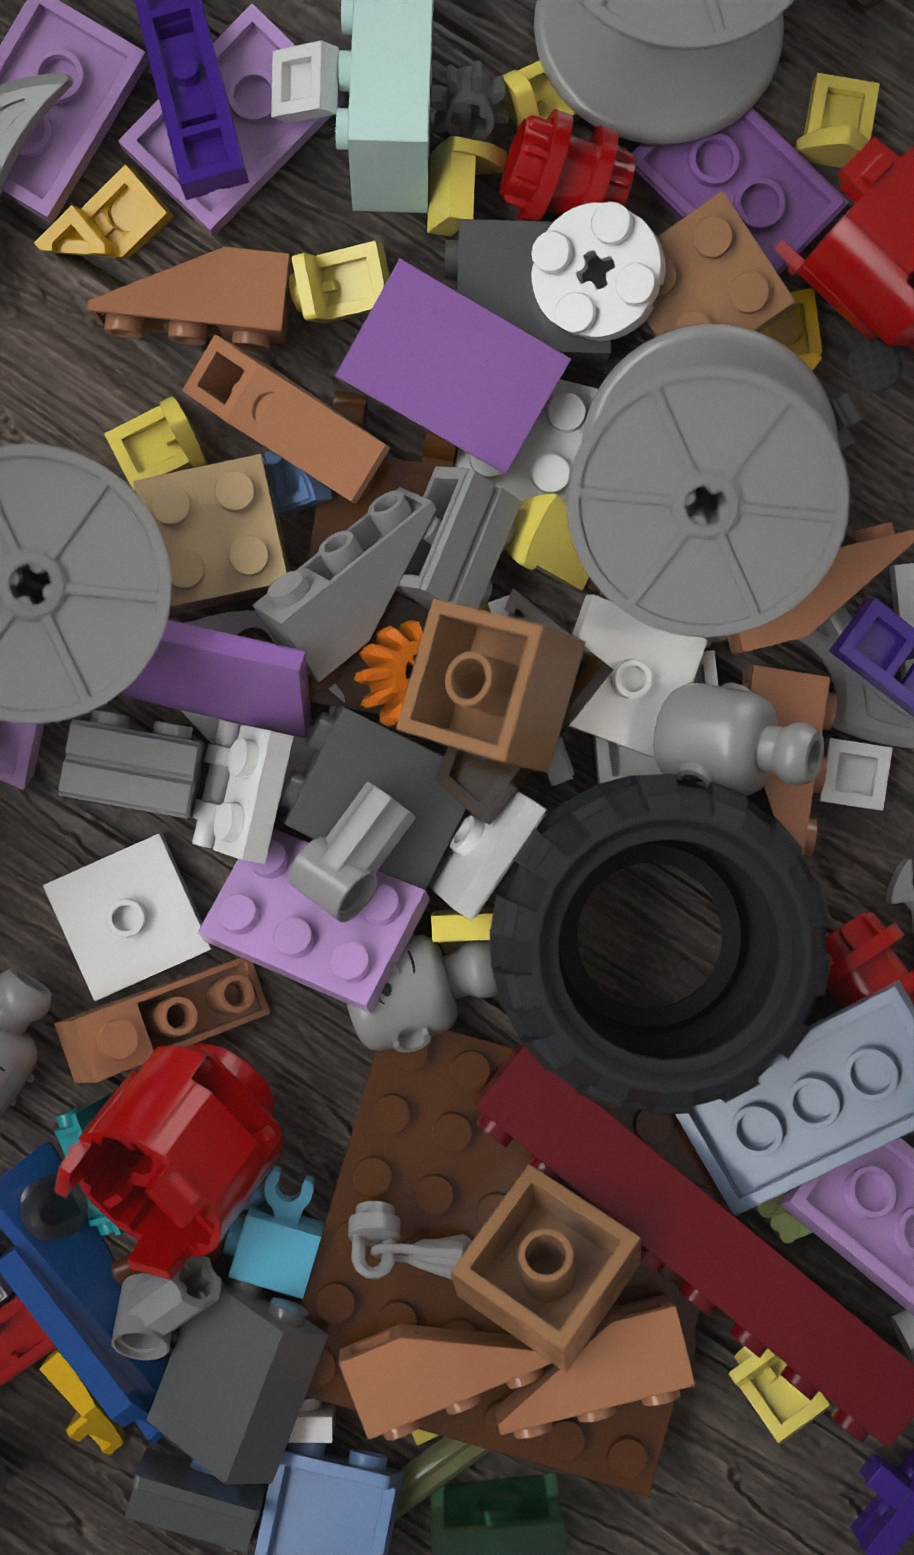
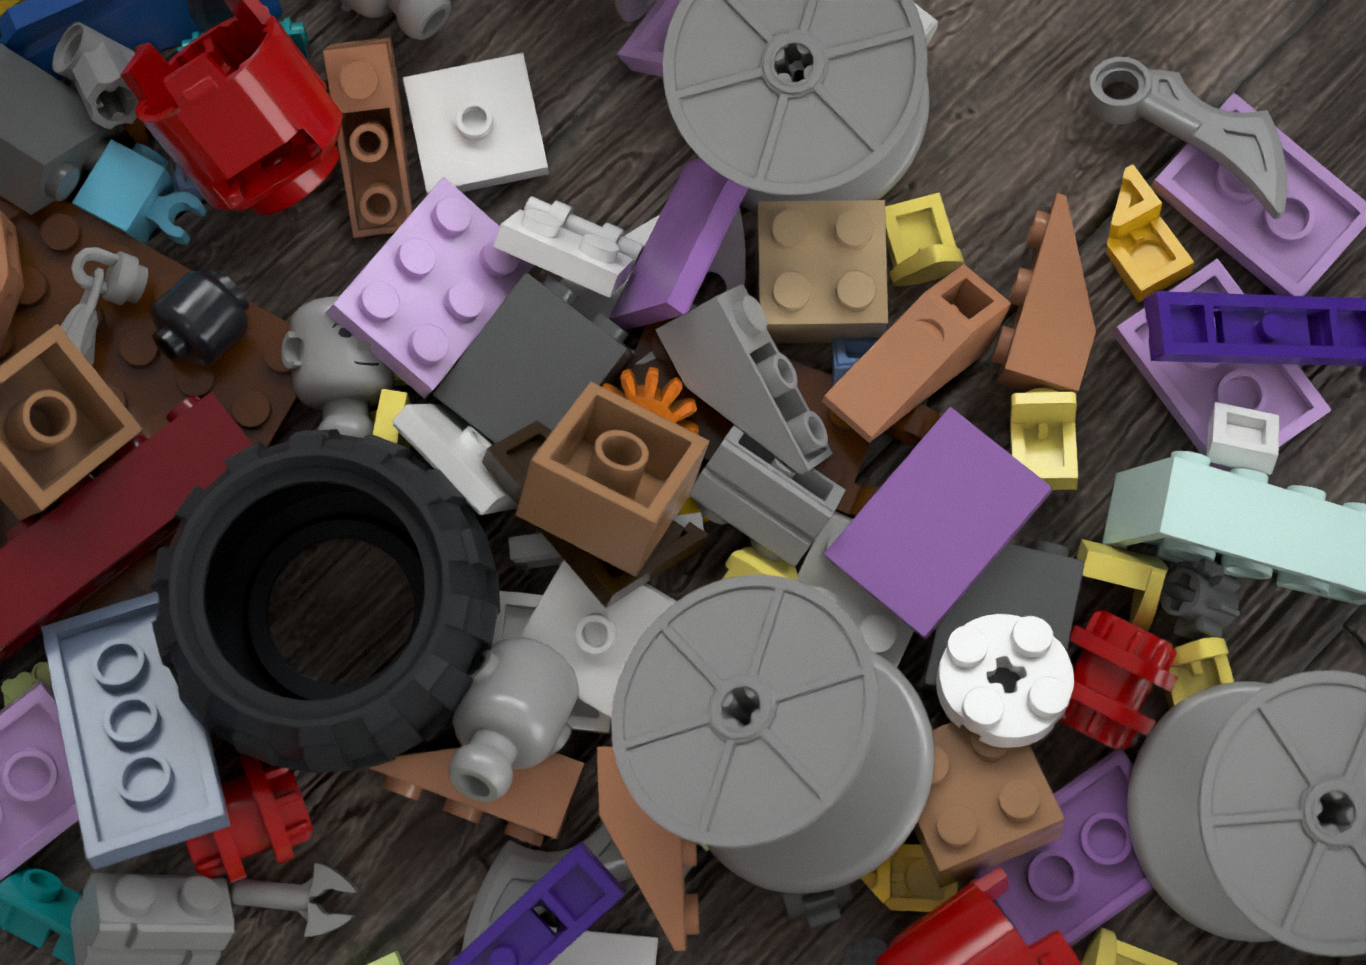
camera: 105 degrees right, 10 degrees down
(132, 767) = (616, 154): light grey brick -> none
(341, 868) = (472, 310): light grey piece -> none
(398, 1139) = (199, 318): none -> black head
(855, 774) = (454, 851): white plate -> none

